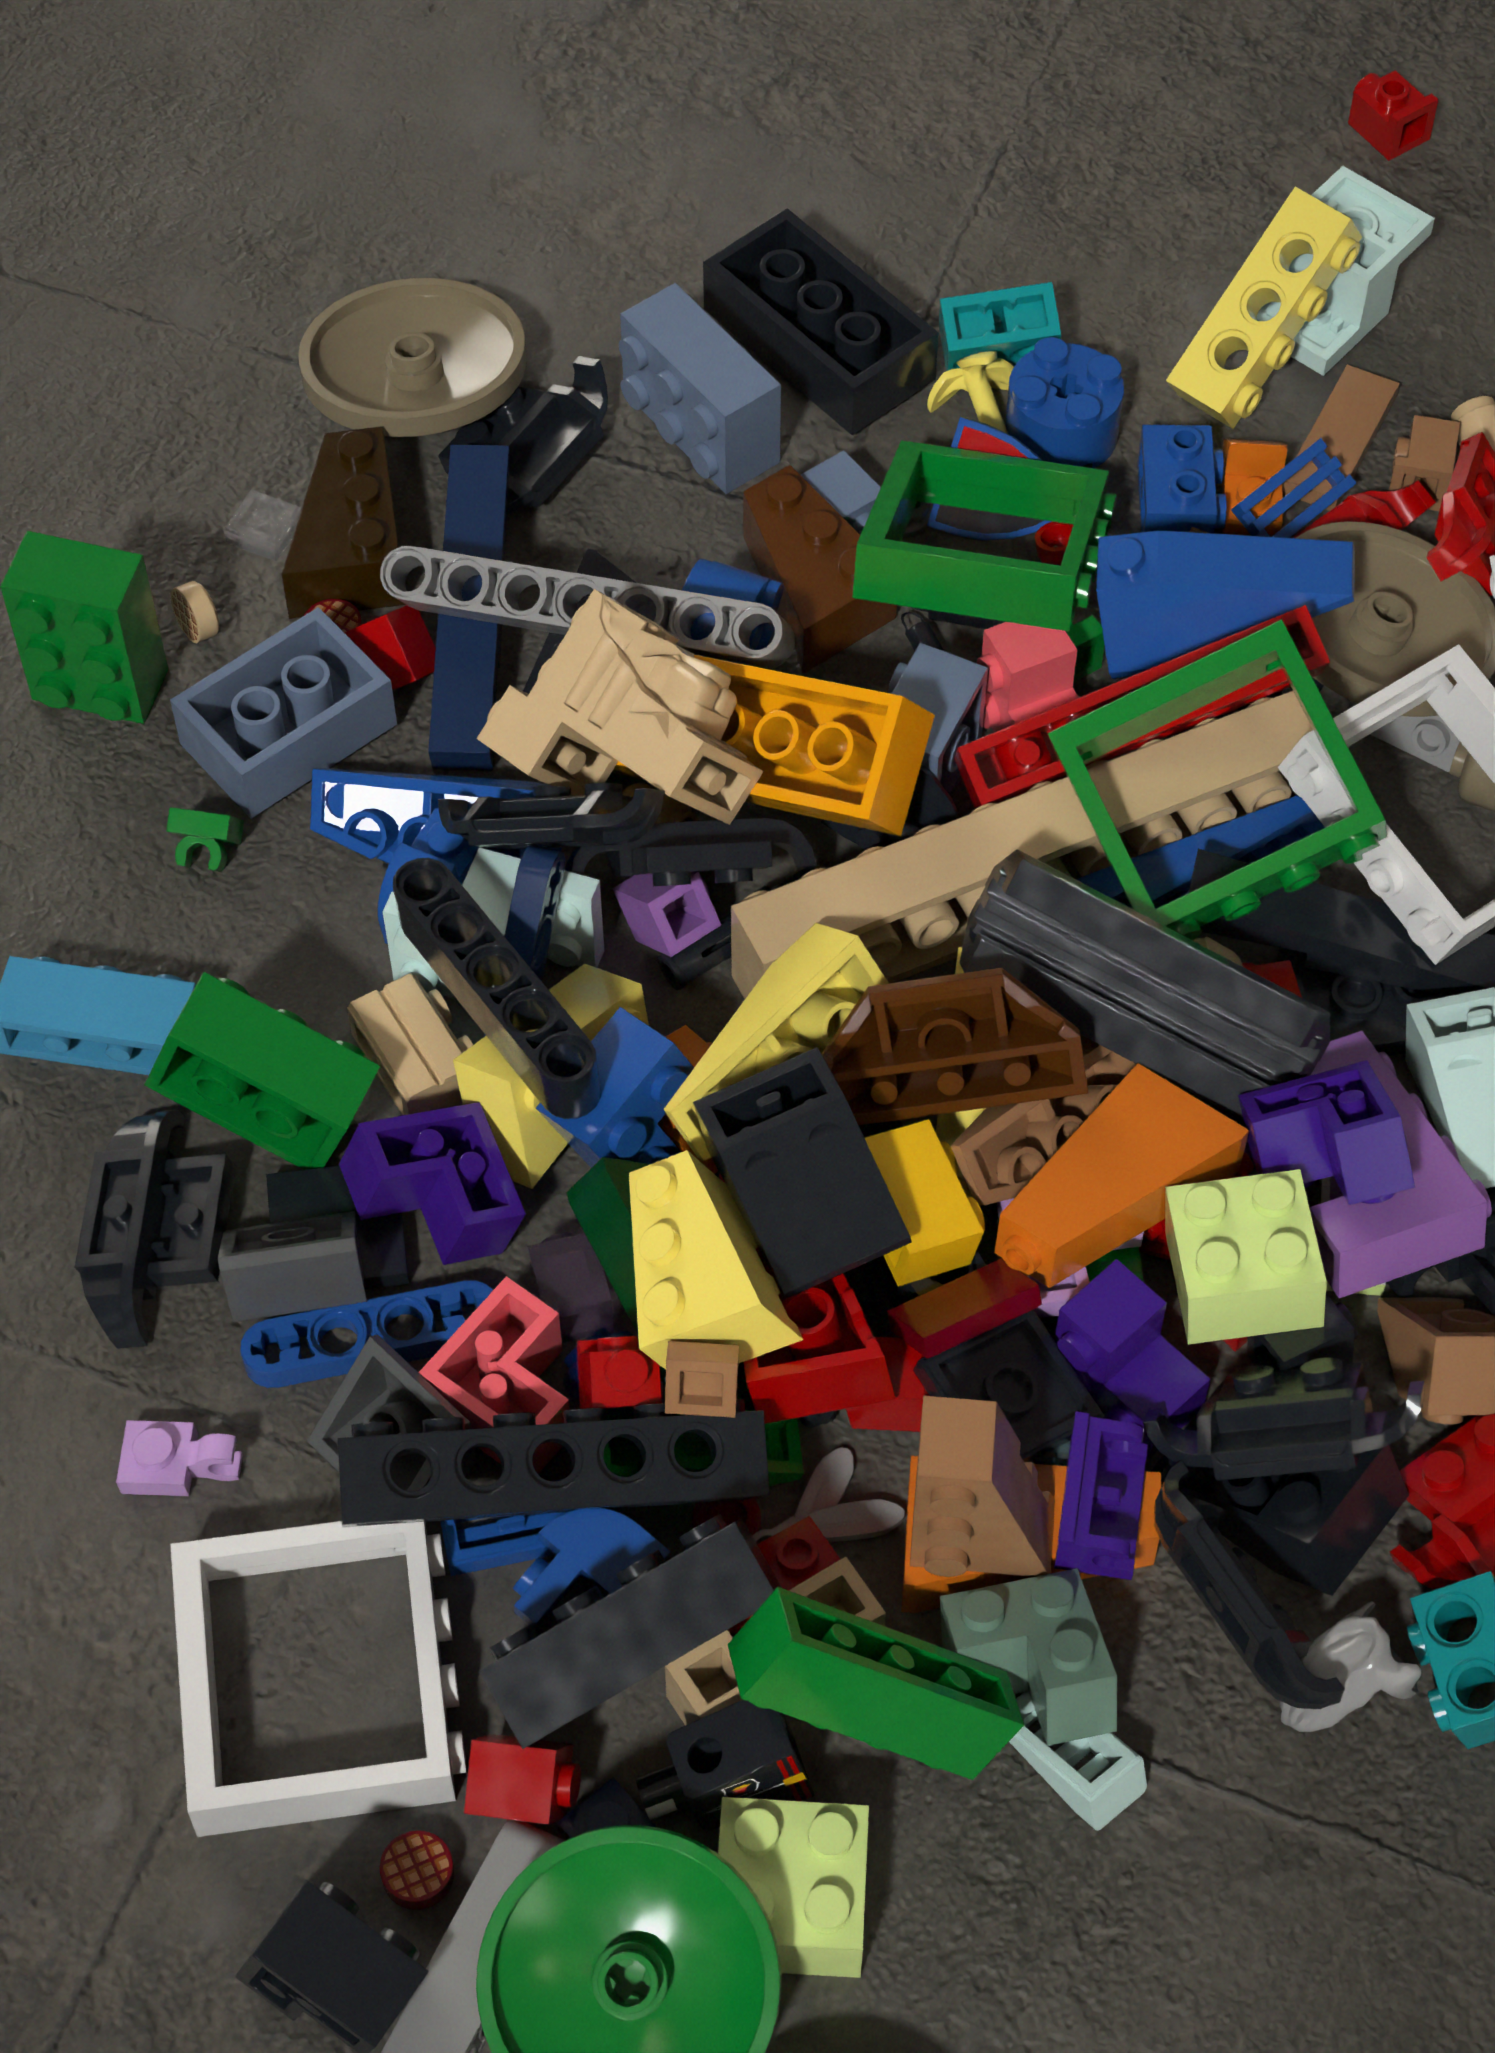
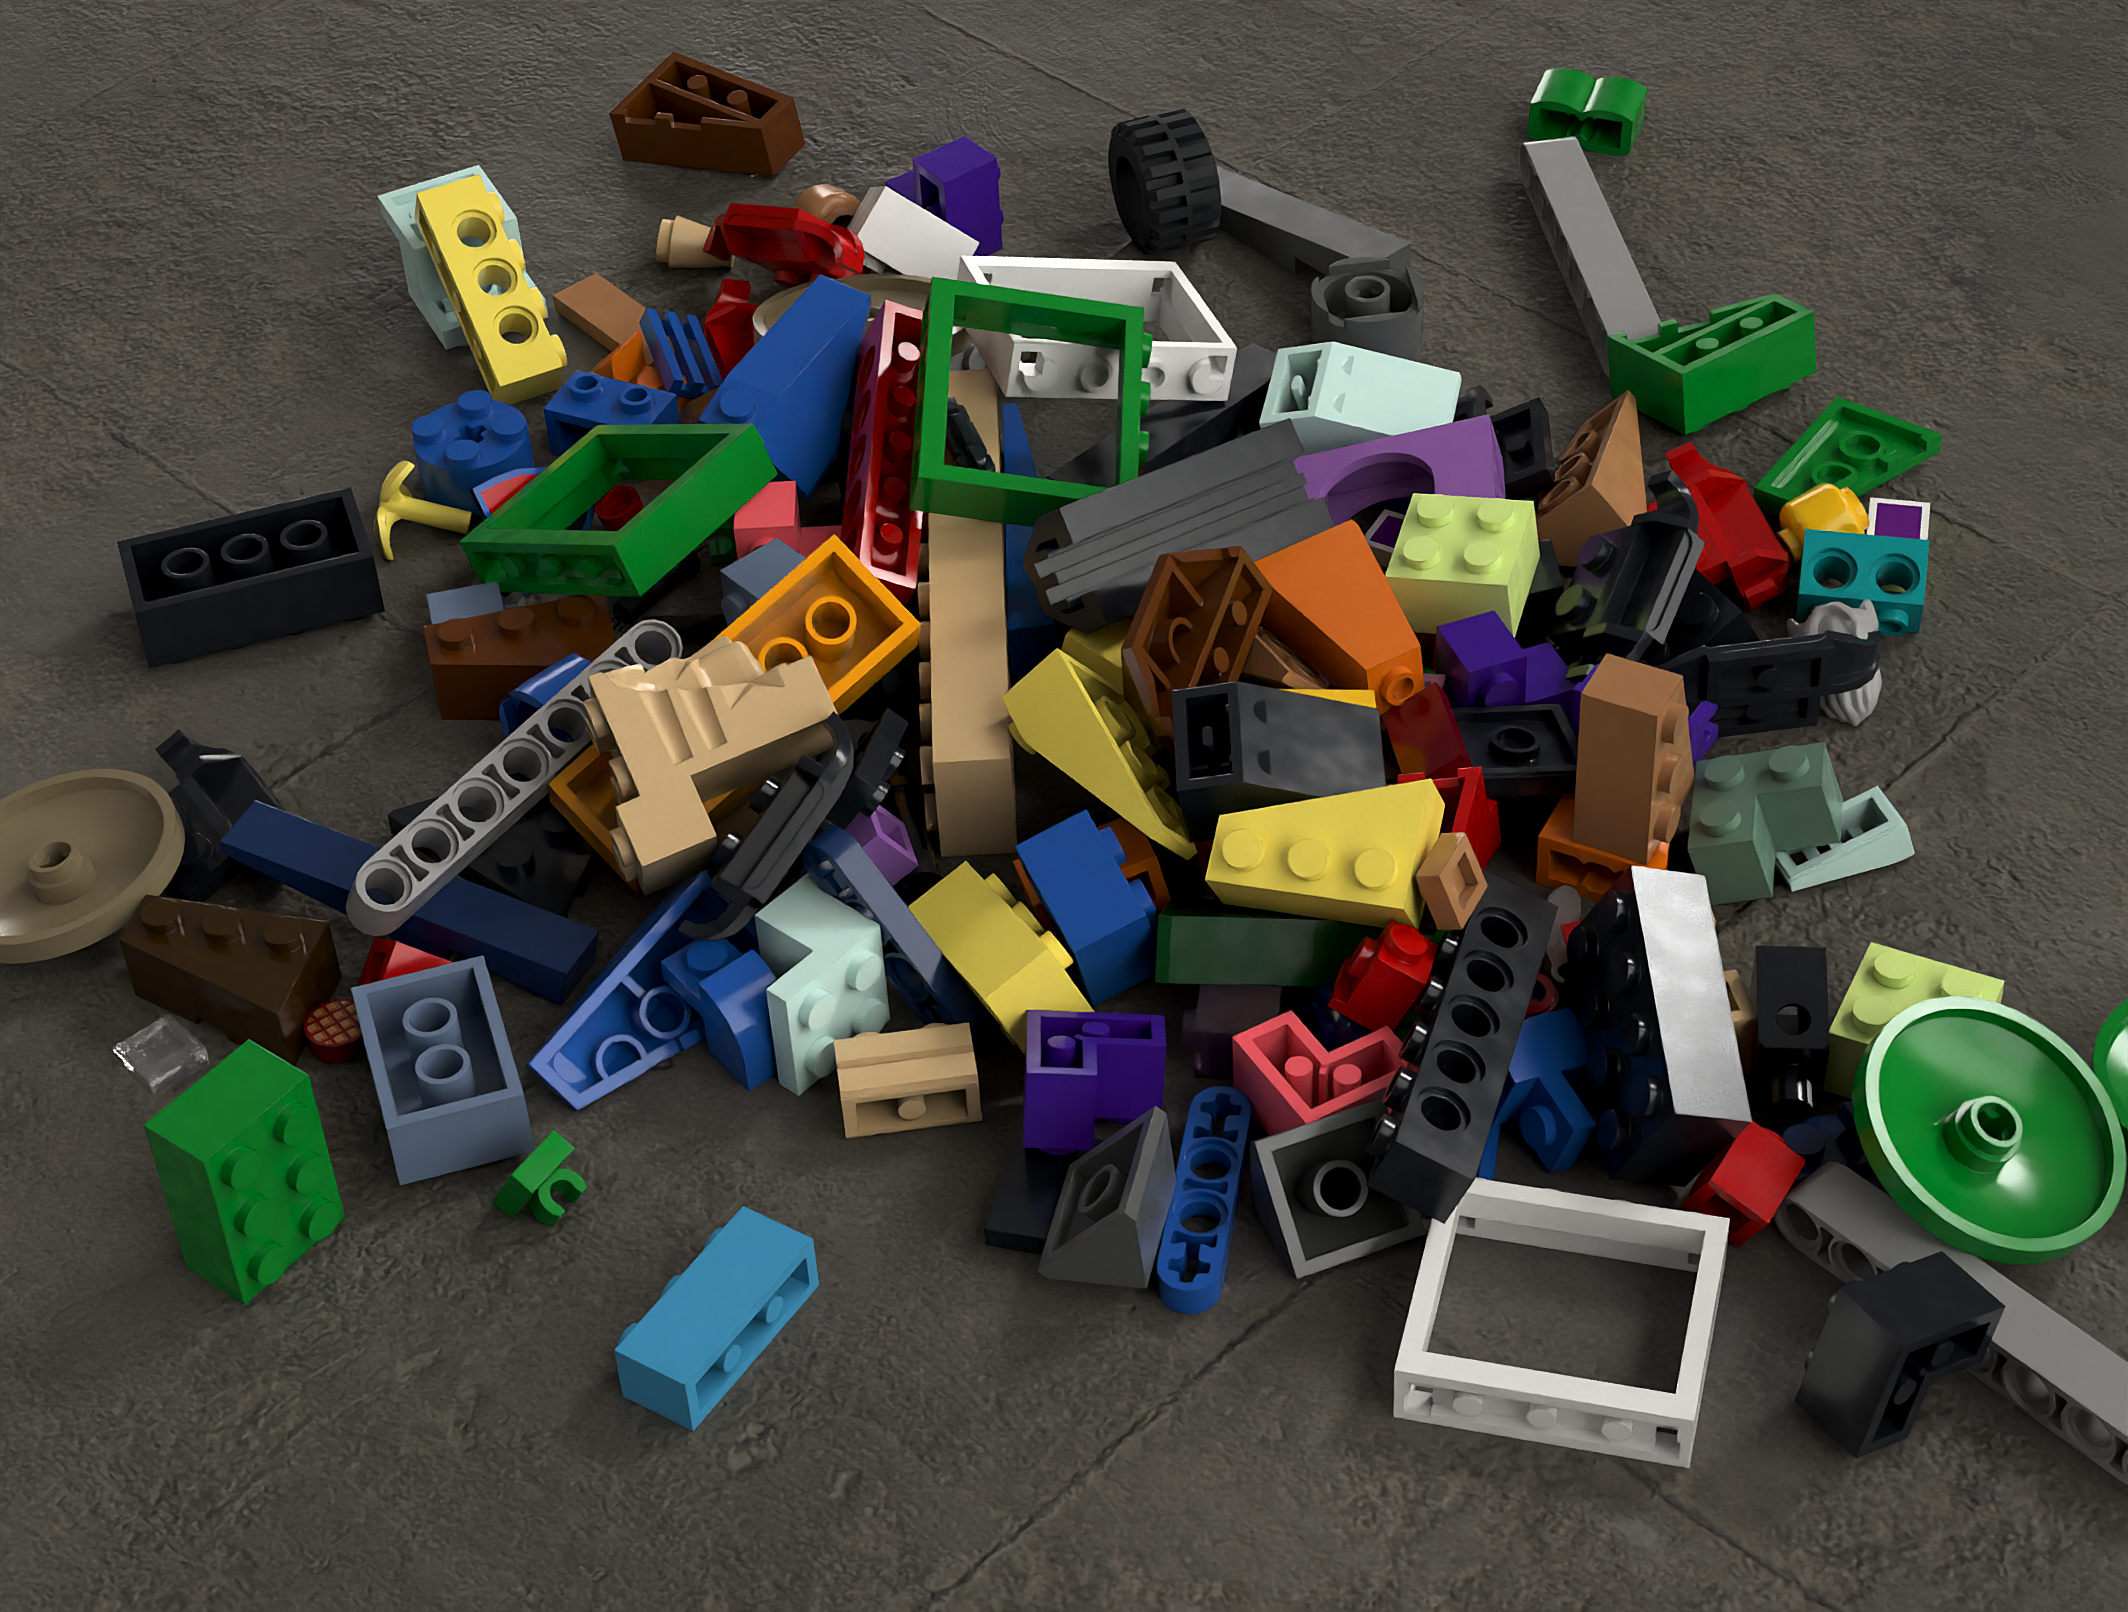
camera: 65 degrees left, 15 degrees down
(149, 1223) = (993, 1327): black plate -> none
(167, 1455) = (1270, 1389): lavender plate -> none
(261, 1073) = (903, 1159): green brick -> none
(417, 1870) = (1792, 1300): tile -> none
(473, 959) = (948, 914): black beam -> none
(700, 388) = (274, 667): sand blue brick -> none
(874, 1684) = (1775, 888): green brick -> none
(997, 321) = (363, 455): teal brick -> none
(1183, 757) = (964, 441): none -> black axle
(1333, 1127) = (1386, 457): dark purple brick -> none
(1391, 113) = (298, 191): red brick -> none
(1426, 456) = (691, 276): medium nougat brick -> none

